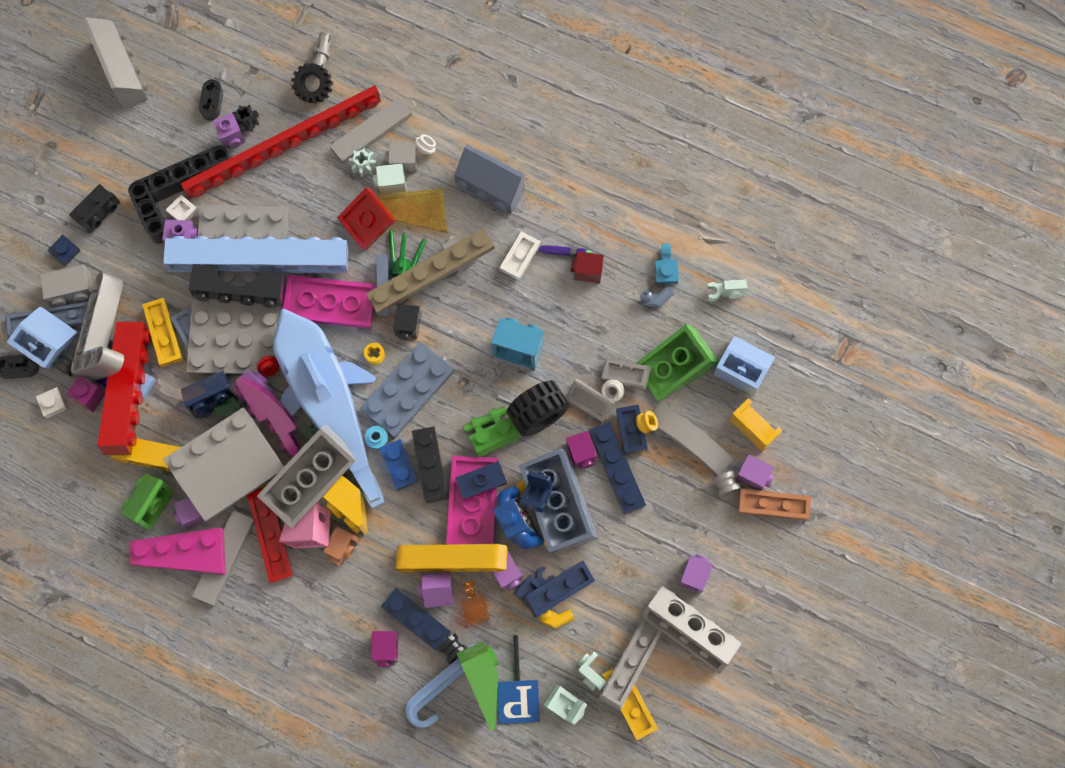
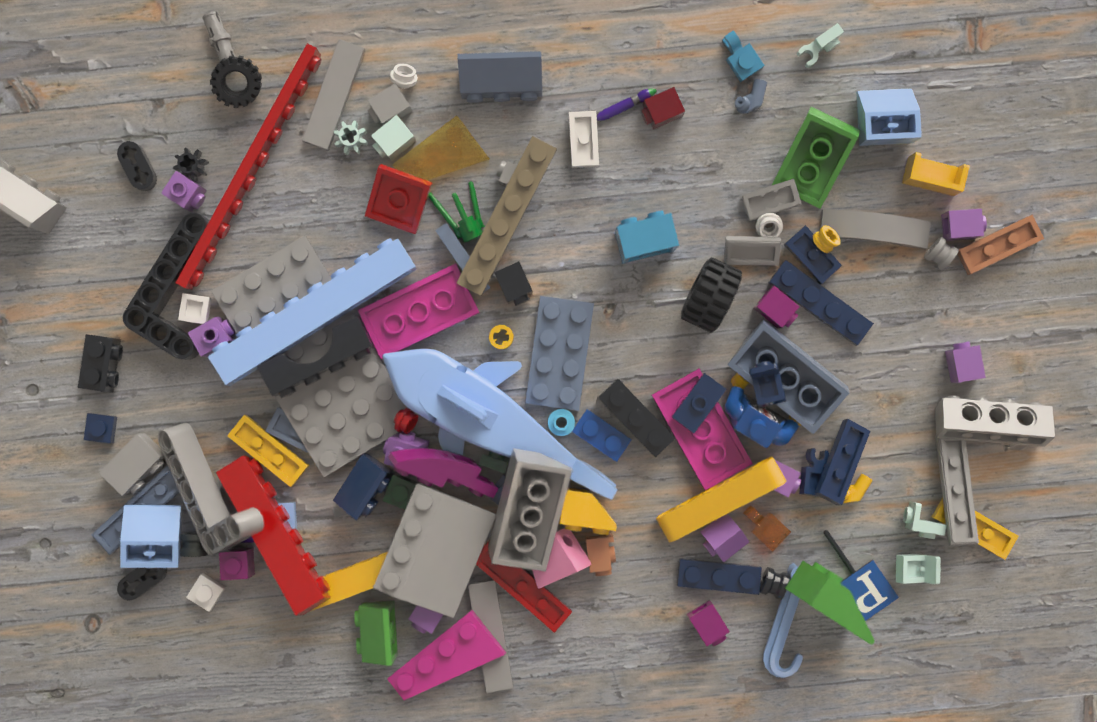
camera: 30 degrees left, 15 degrees up
(494, 436) = (680, 350): bright green plate -> none

